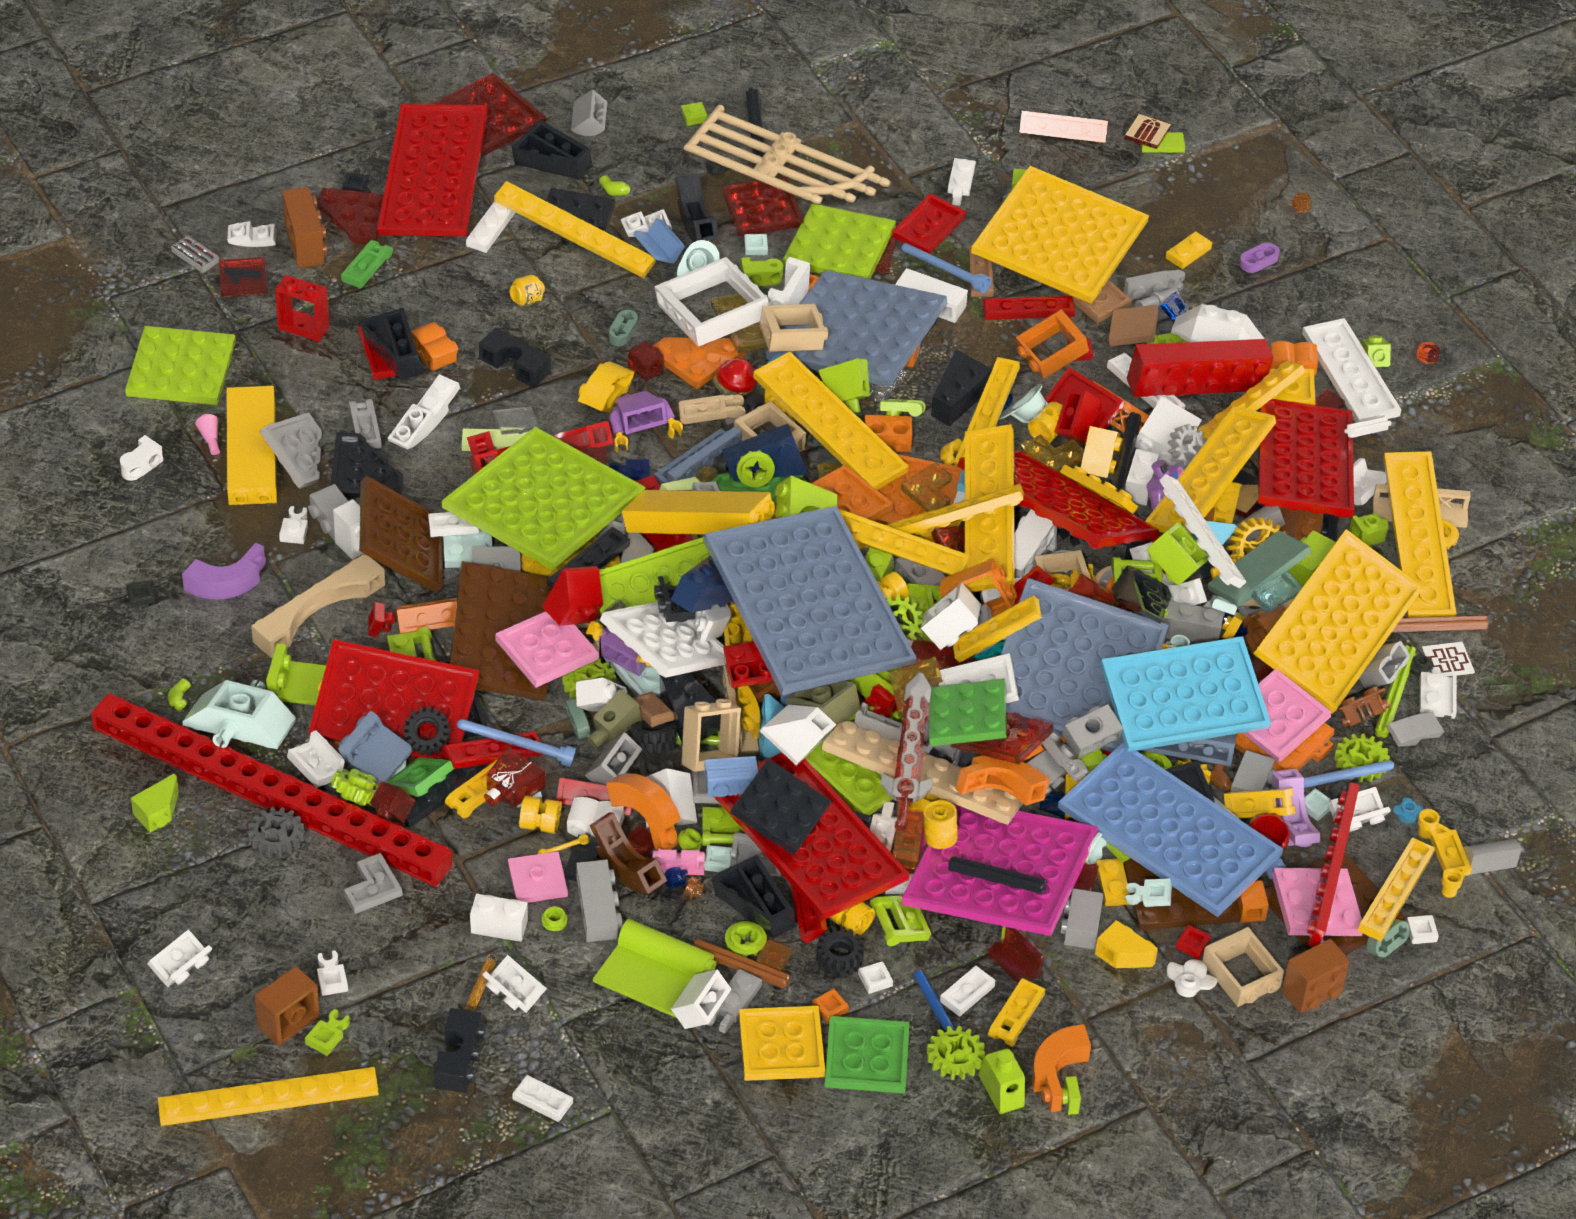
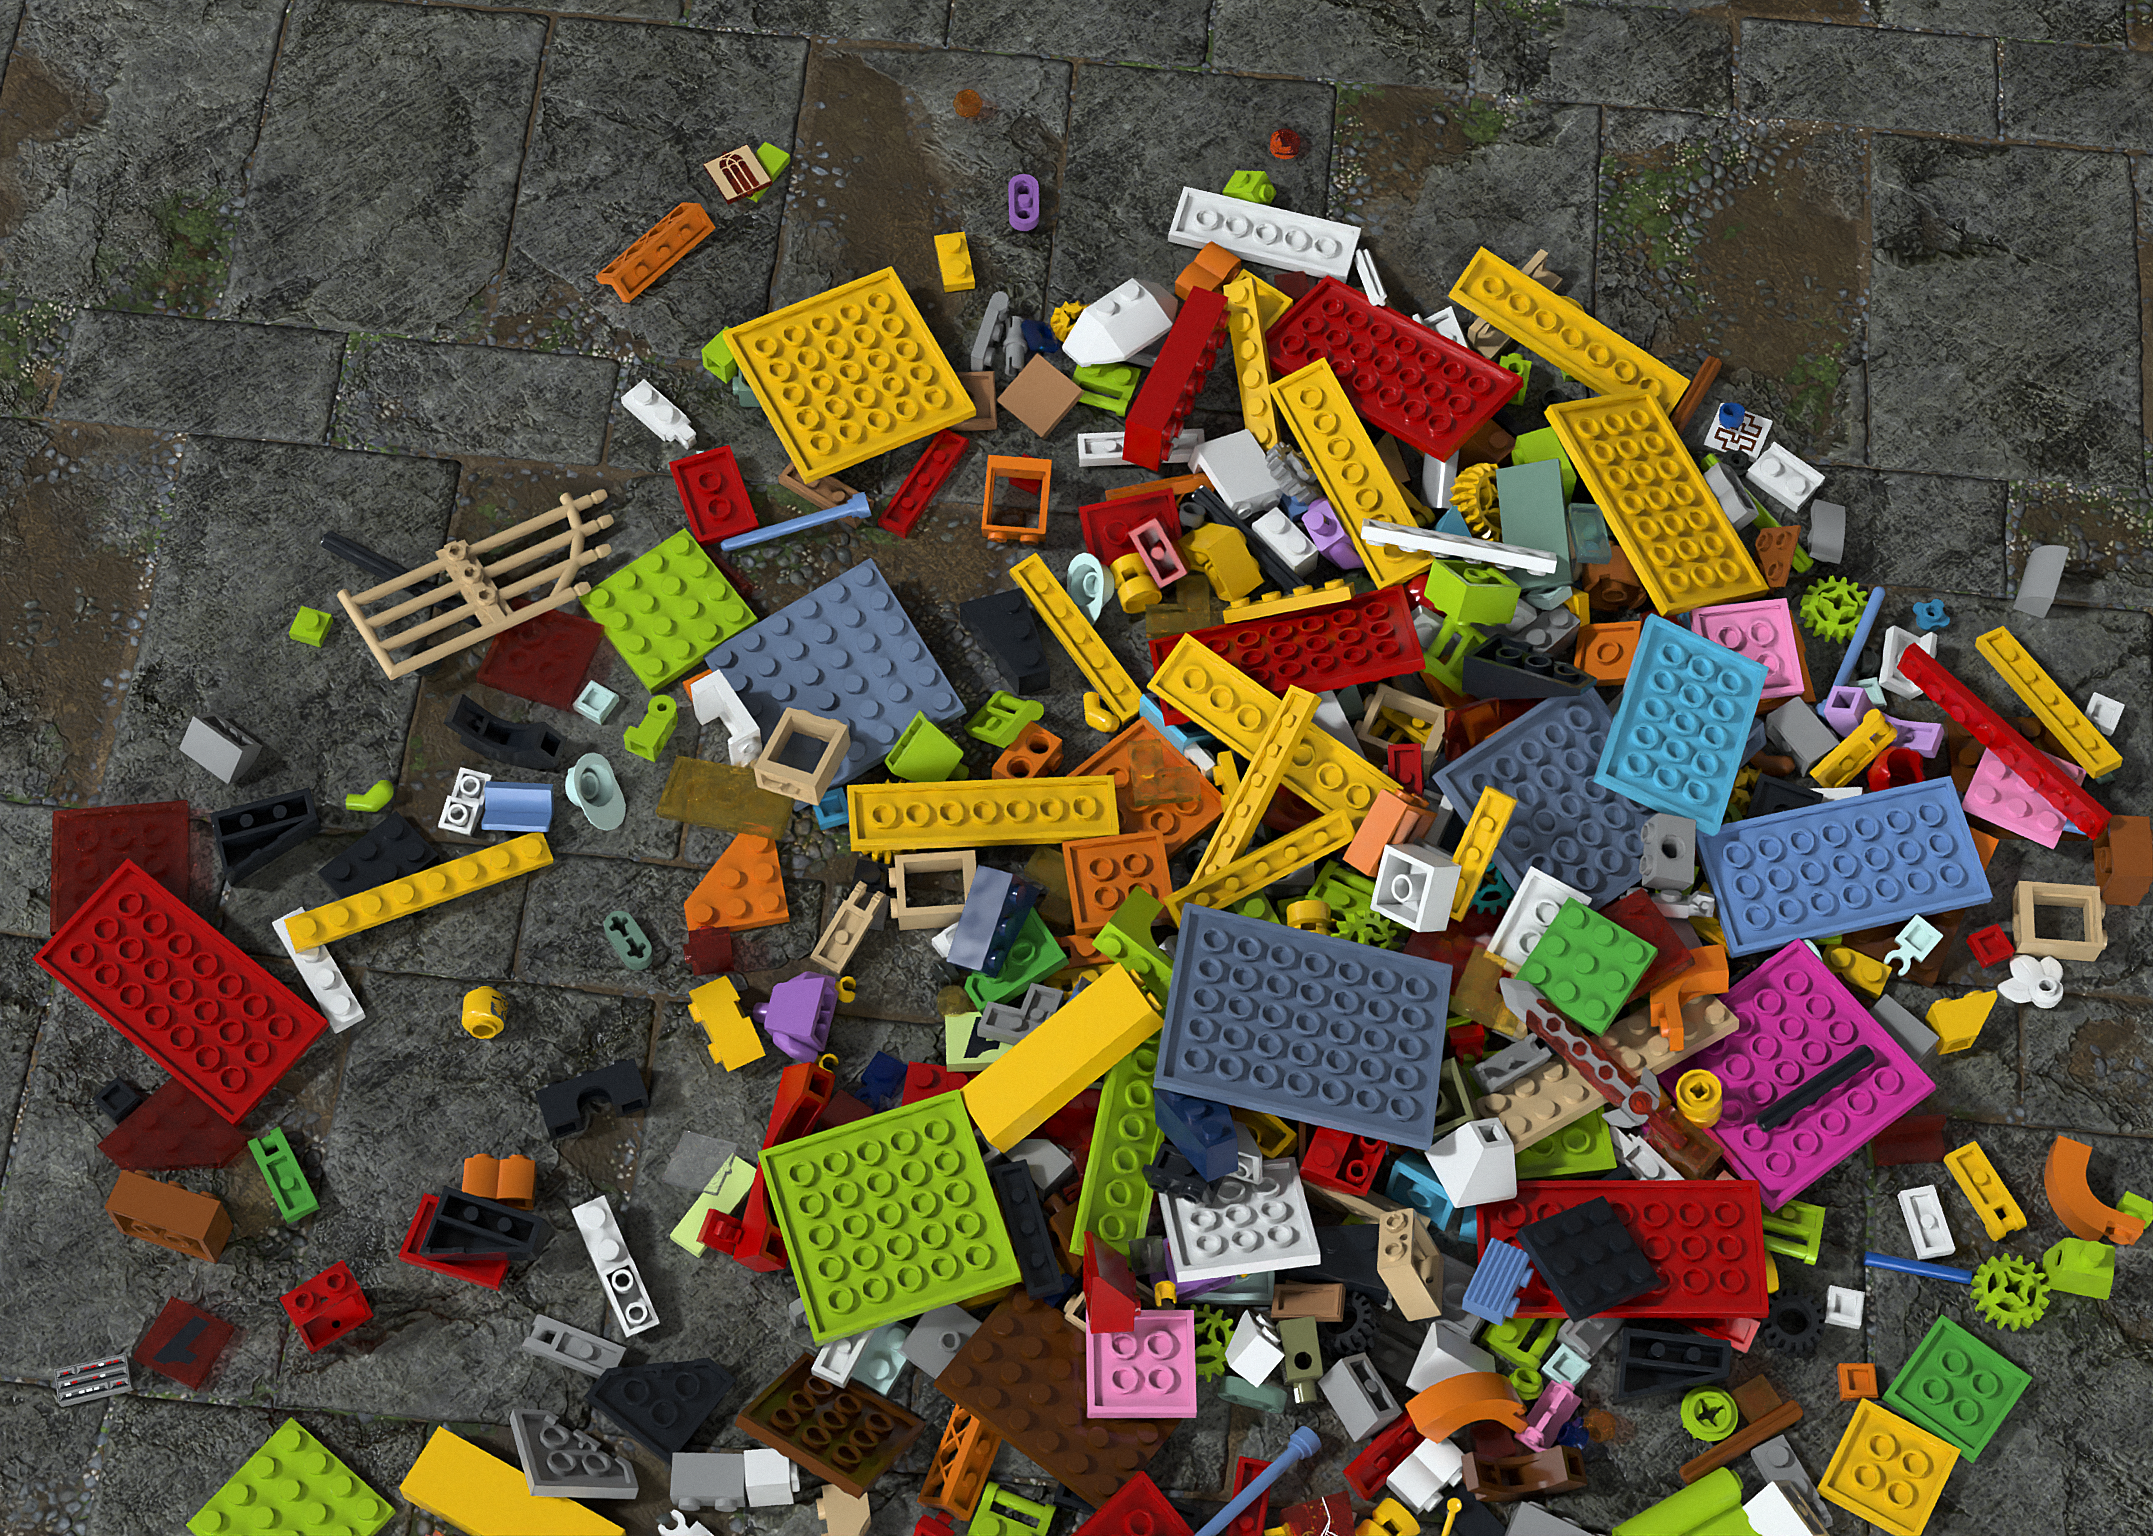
camera: 55 degrees left, 15 degrees up
(246, 235) = (115, 1287): white slope -> none
(698, 456) = (927, 993): sand blue fence -> none
(722, 270) = (676, 864): white window -> none
(735, 377) = (816, 868): red hair -> none
(750, 711) = (1390, 1195): yellow slope -> none
(761, 476) = (1015, 945): lime gear -> none
(955, 295) = (829, 562): white brick -> none
(1116, 422) = (1191, 515): none -> dark grey hinge
(1448, 851) = (2018, 618): yellow plate -> none
(1452, 645) = (1737, 412): none -> blue hinge

